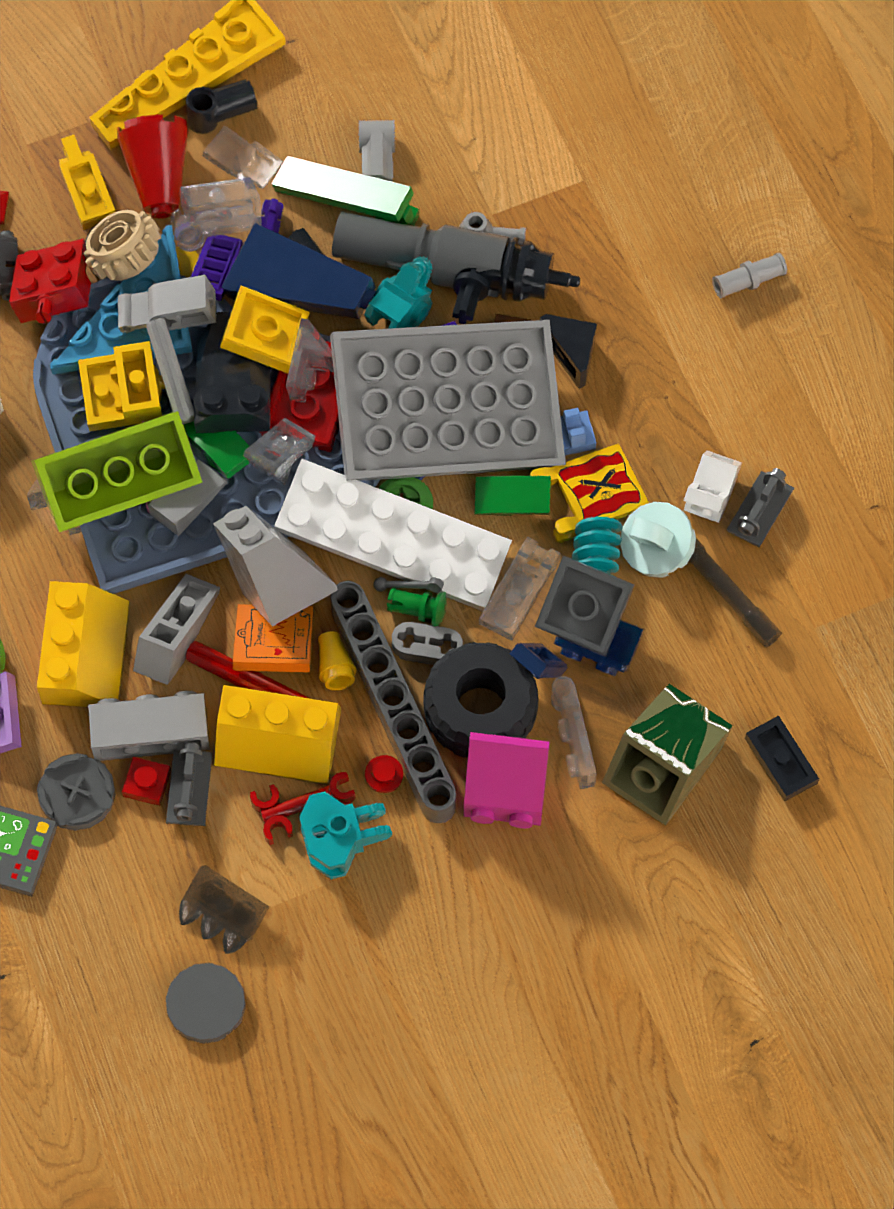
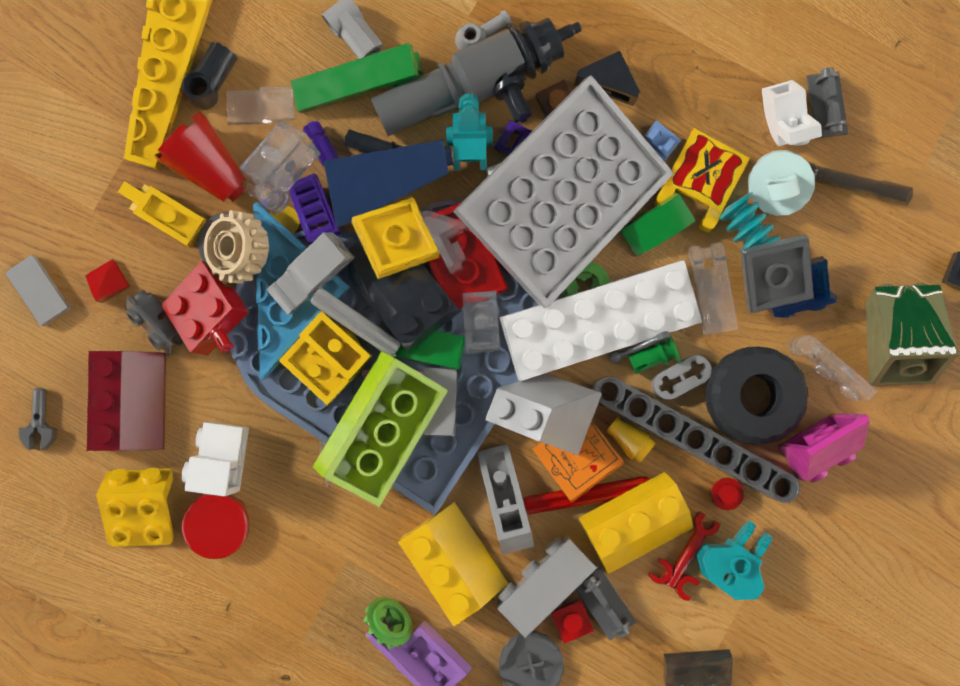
camera: 40 degrees left, 20 degrees up
(539, 660) = (776, 338): dark blue plate -> none

